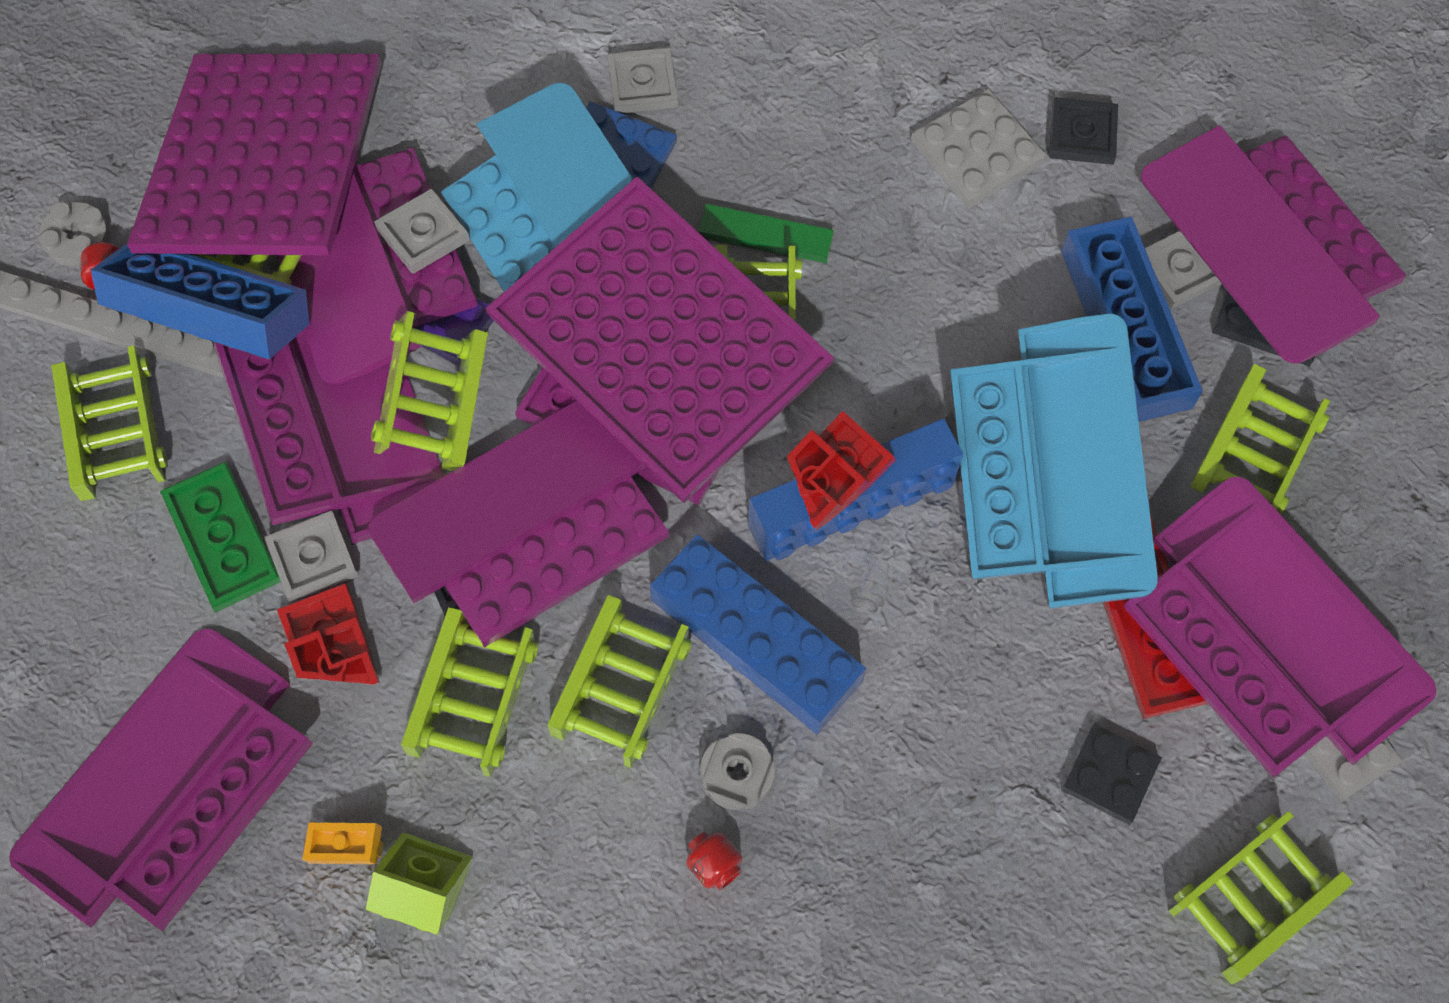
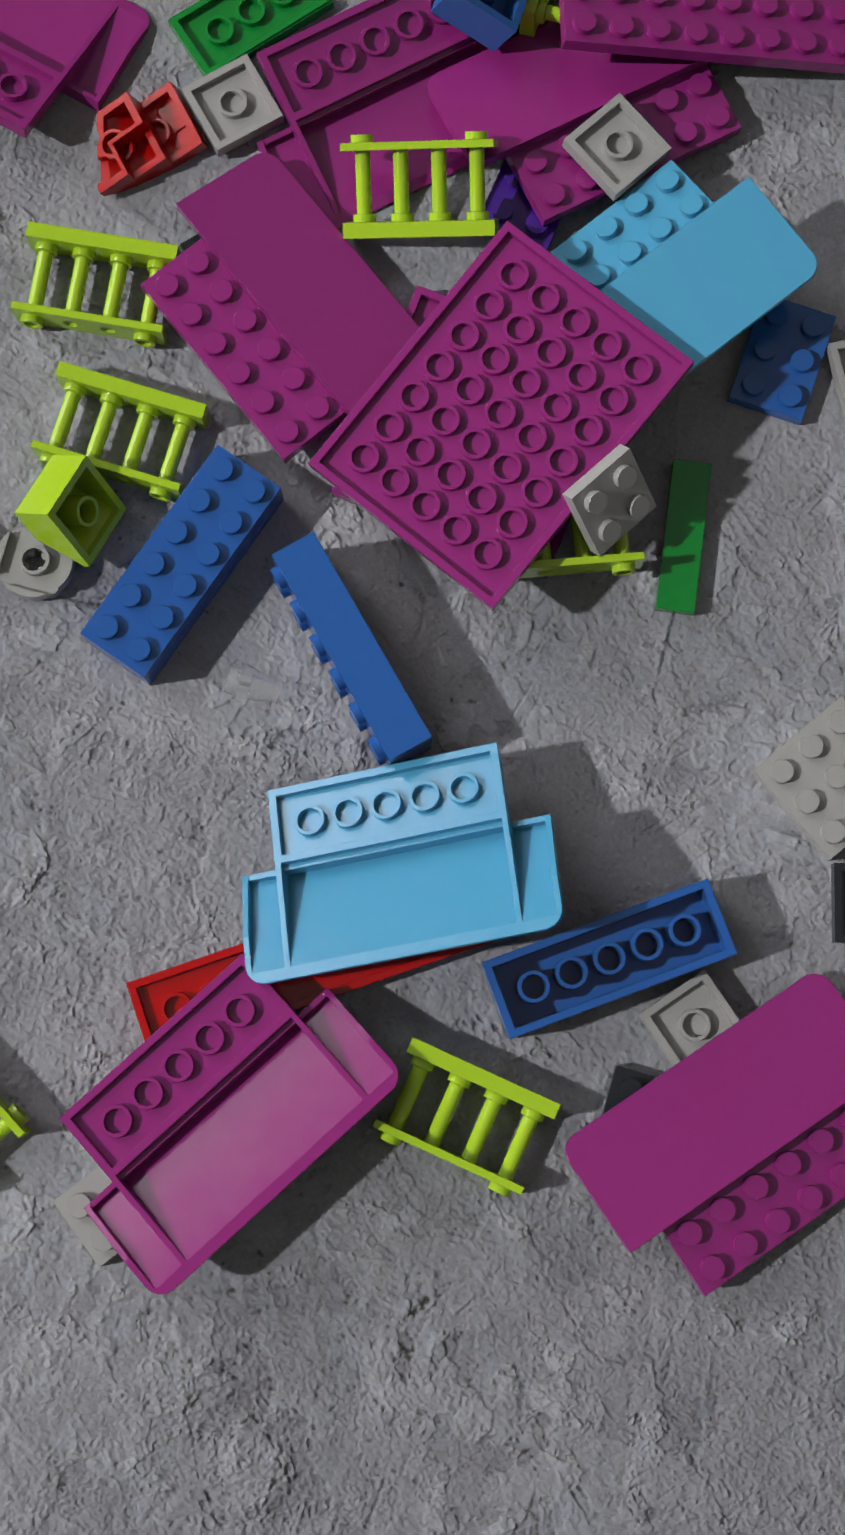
camera: 85 degrees right, 15 degrees up
(693, 727) = (71, 508): none -> lime slope
(747, 258) = (609, 499): none -> light grey plate
(836, 467) = (354, 618): red slope -> none
(1111, 774) = (65, 950): black plate -> none

